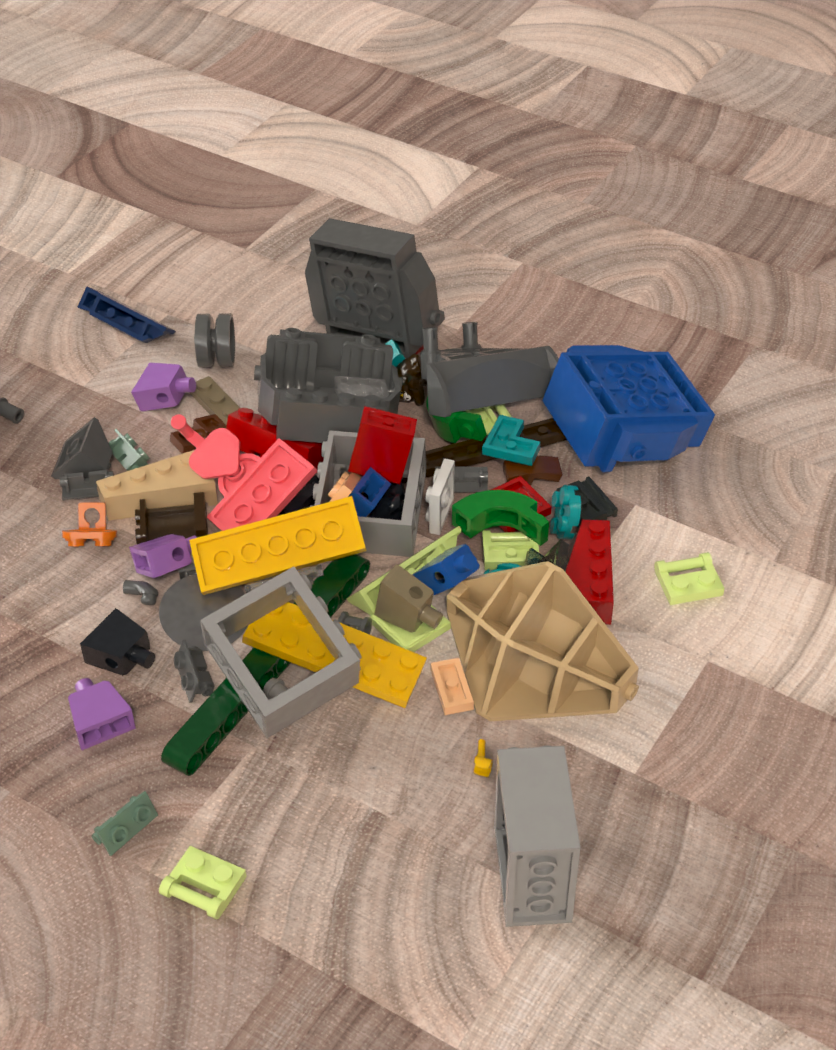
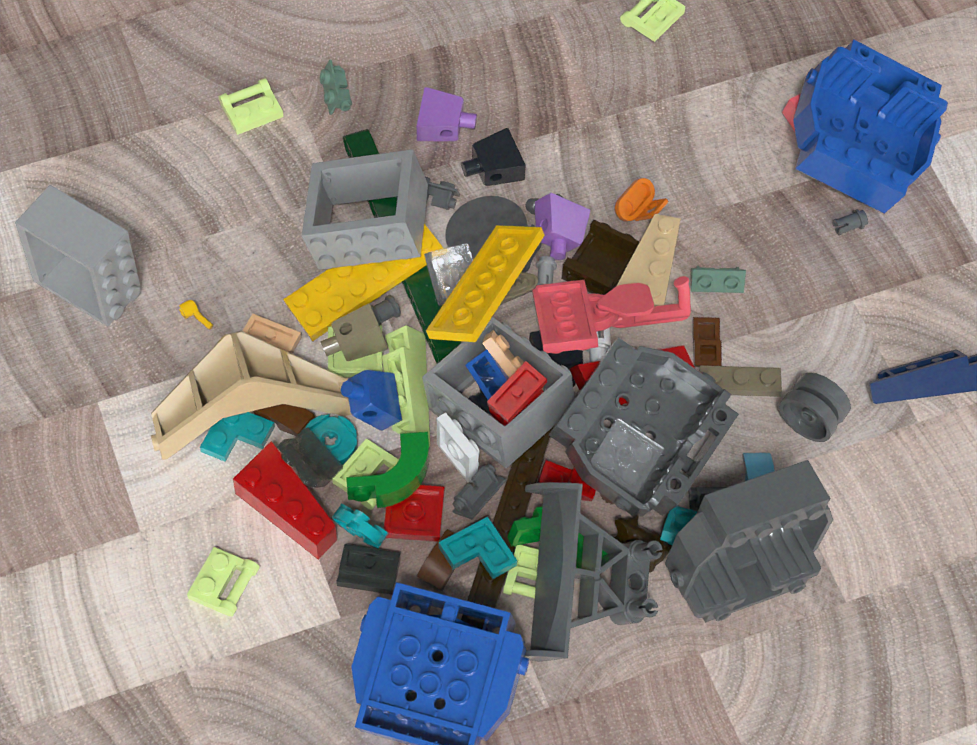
camera: 125 degrees right, 15 degrees up
(76, 486) = (700, 230): dark grey hinge -> none
(84, 451) = (736, 238): dark grey slope -> none
(162, 386) = (787, 341): medium lavender torso -> none

